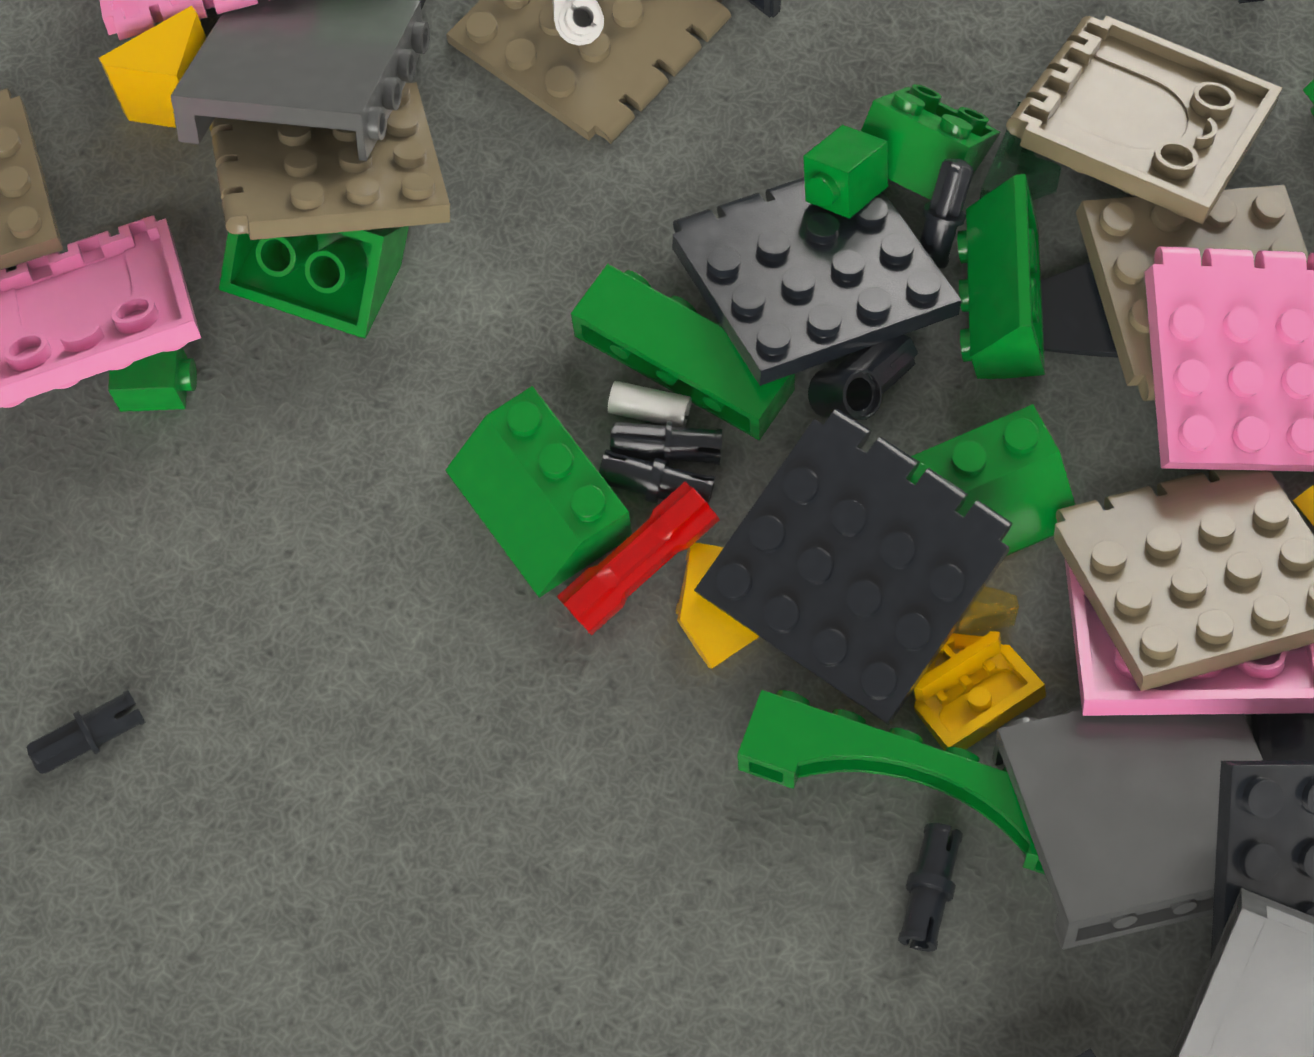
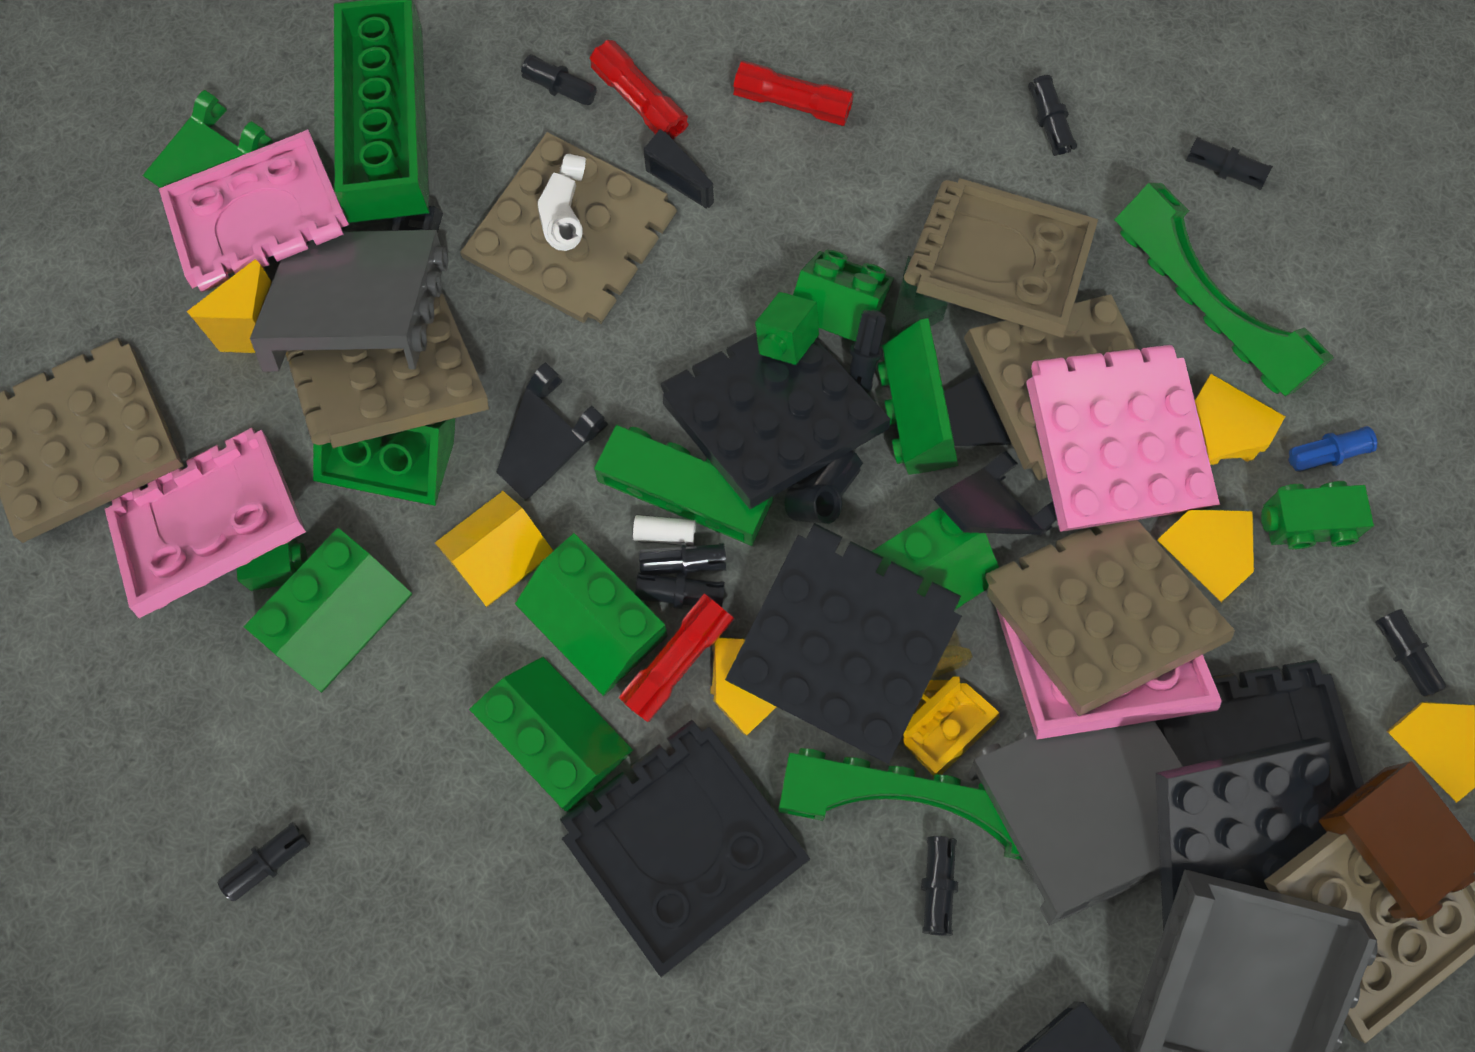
camera: 15 degrees left, 5 degrees up
(213, 442) = (328, 610): none -> green slope
(431, 398) = (495, 547): none -> yellow slope
(465, 629) = (551, 732): none -> green slope
(512, 273) = (541, 438): none -> black flag
(608, 789) = (681, 846): none -> black hinge
(1068, 421) = (986, 506): none -> black flag

